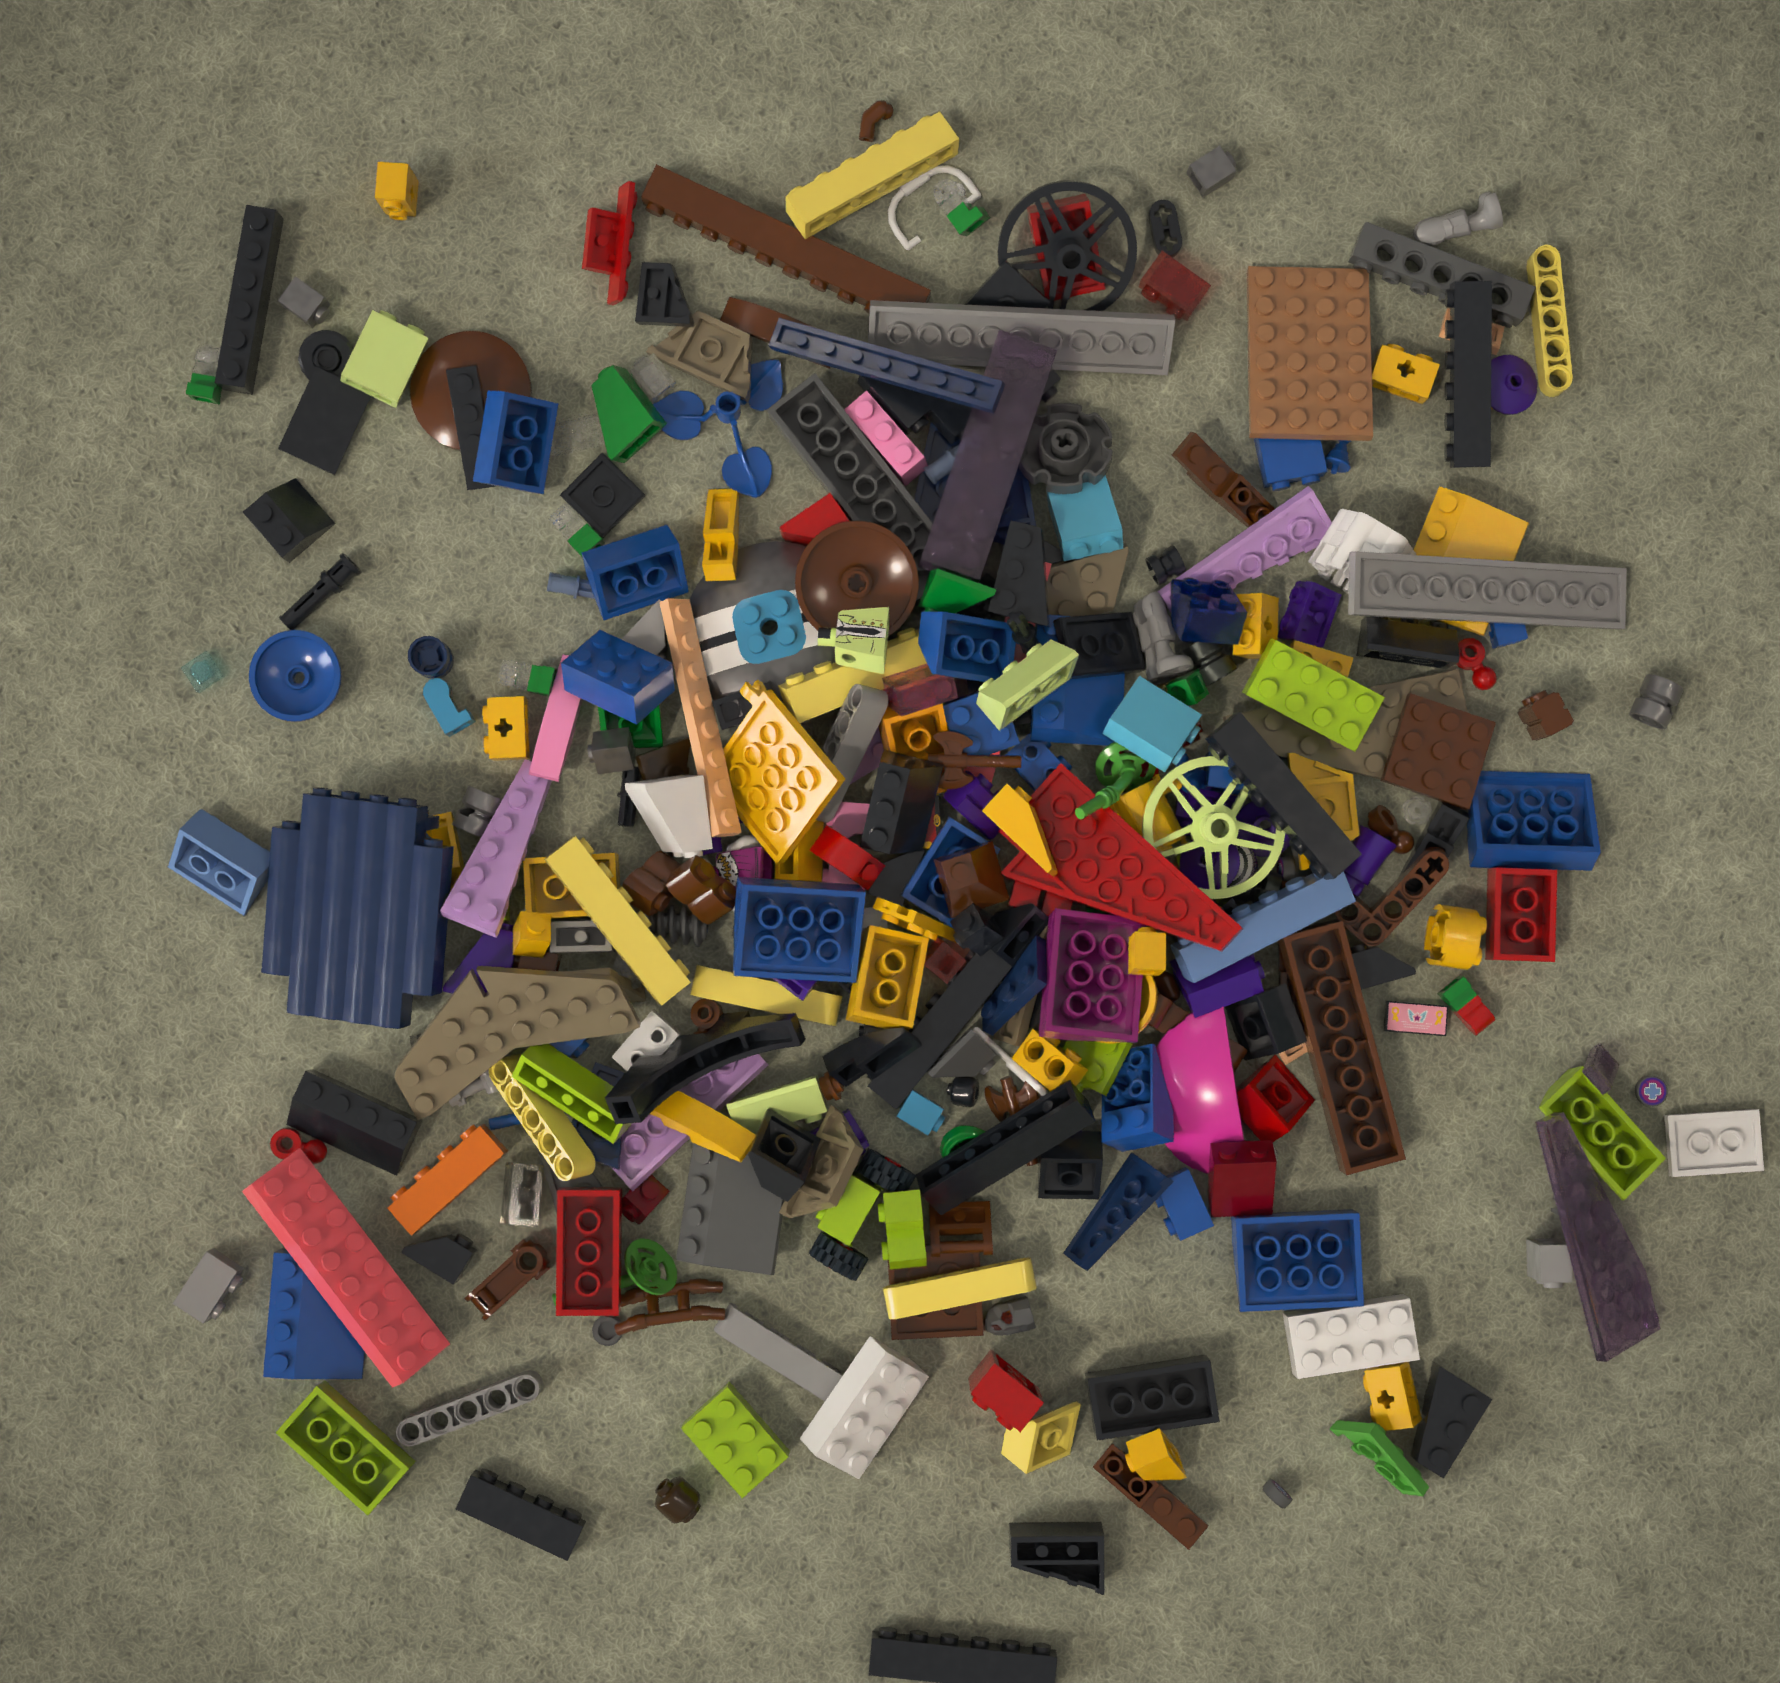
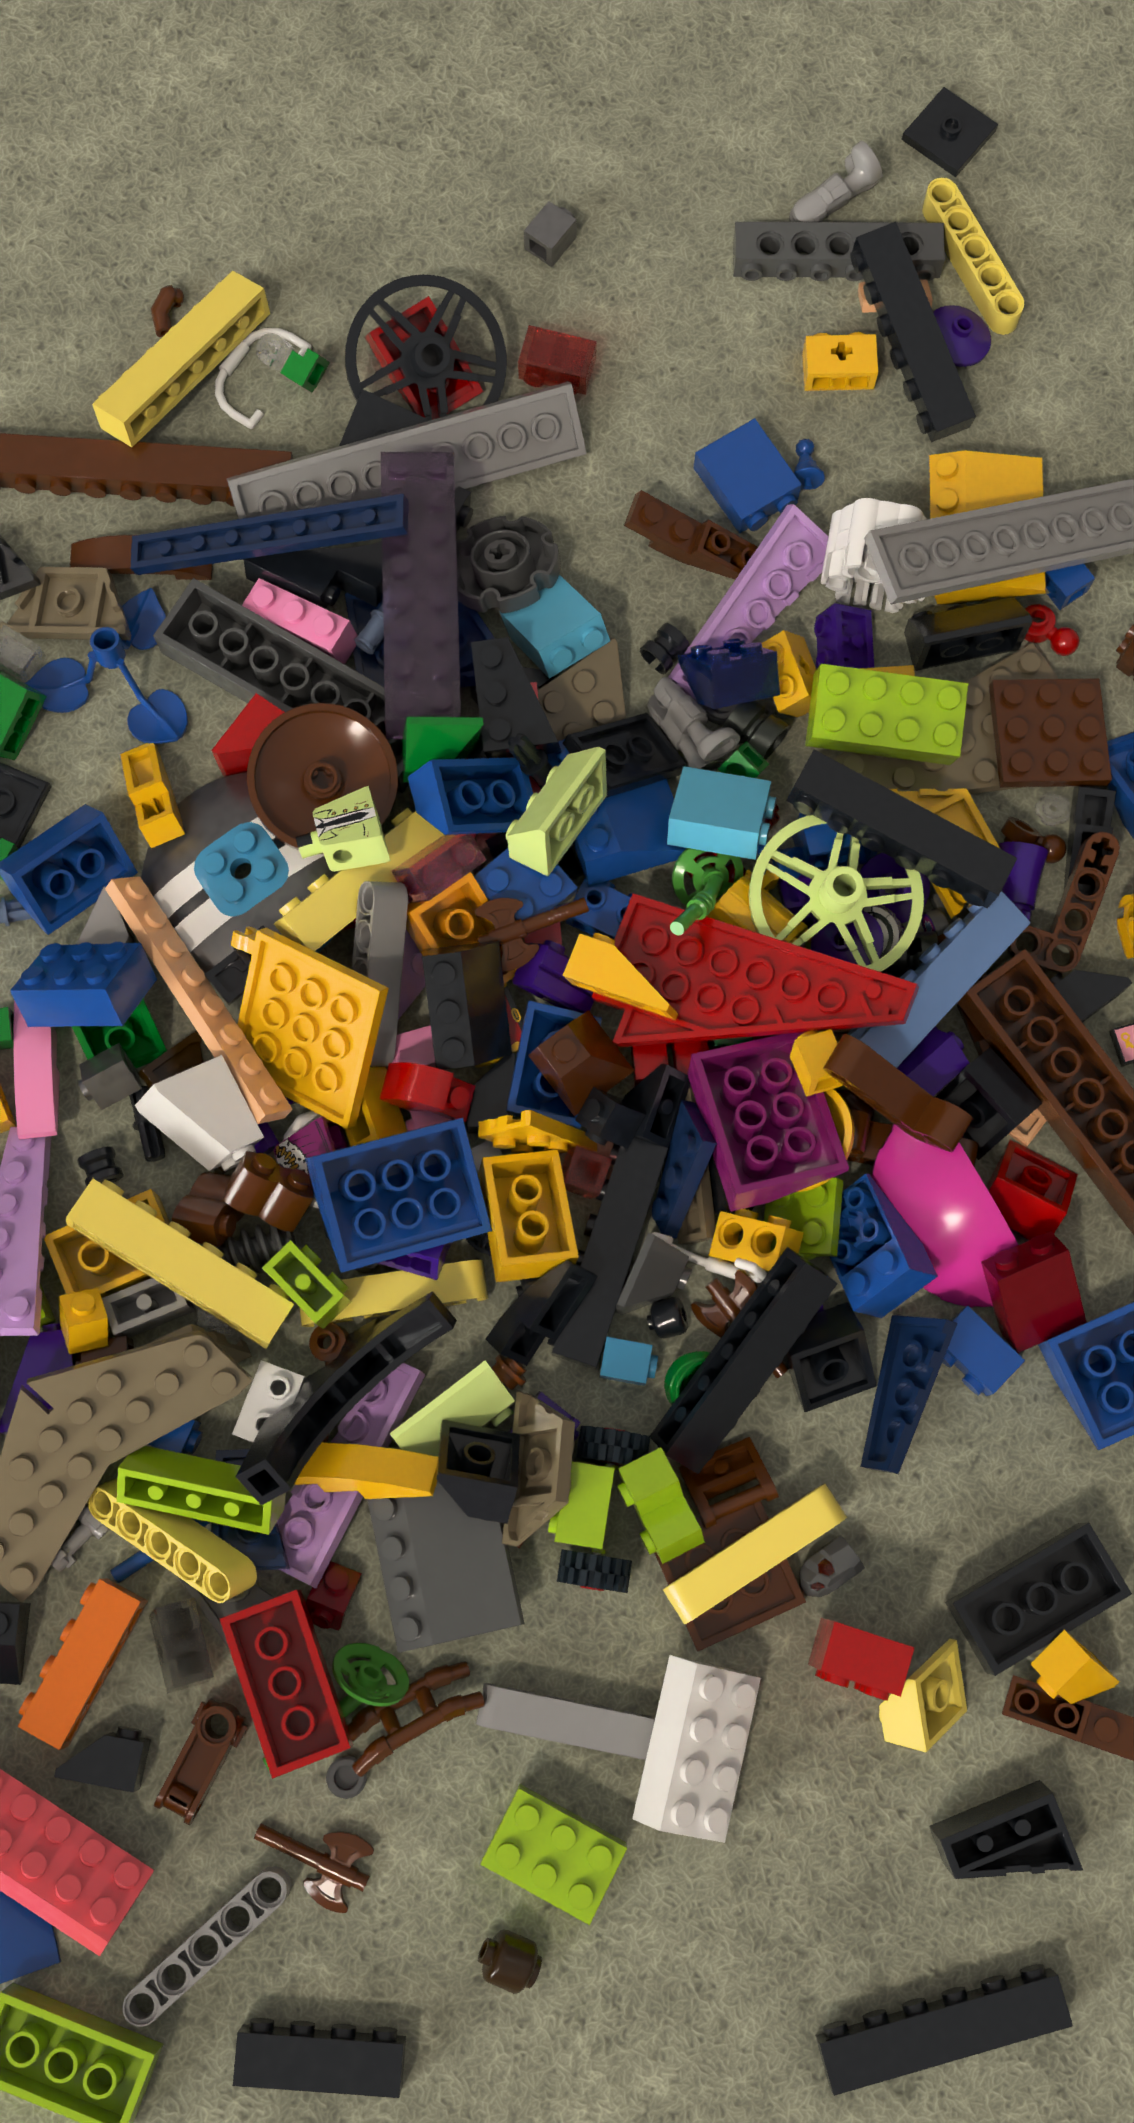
camera: 20 degrees left, 10 degrees down
(576, 1389) = (335, 1868): none -> reddish brown piece
(582, 817) = (100, 1165): none -> black wheel
(705, 970) = (305, 1283): none -> lime brick
(1158, 229) = (530, 305): black beam -> none
(1194, 1002) = (896, 1095): none -> reddish brown beam
(1309, 353) = (731, 375): medium nougat plate -> none
(1578, 199) = (949, 132): none -> black plate

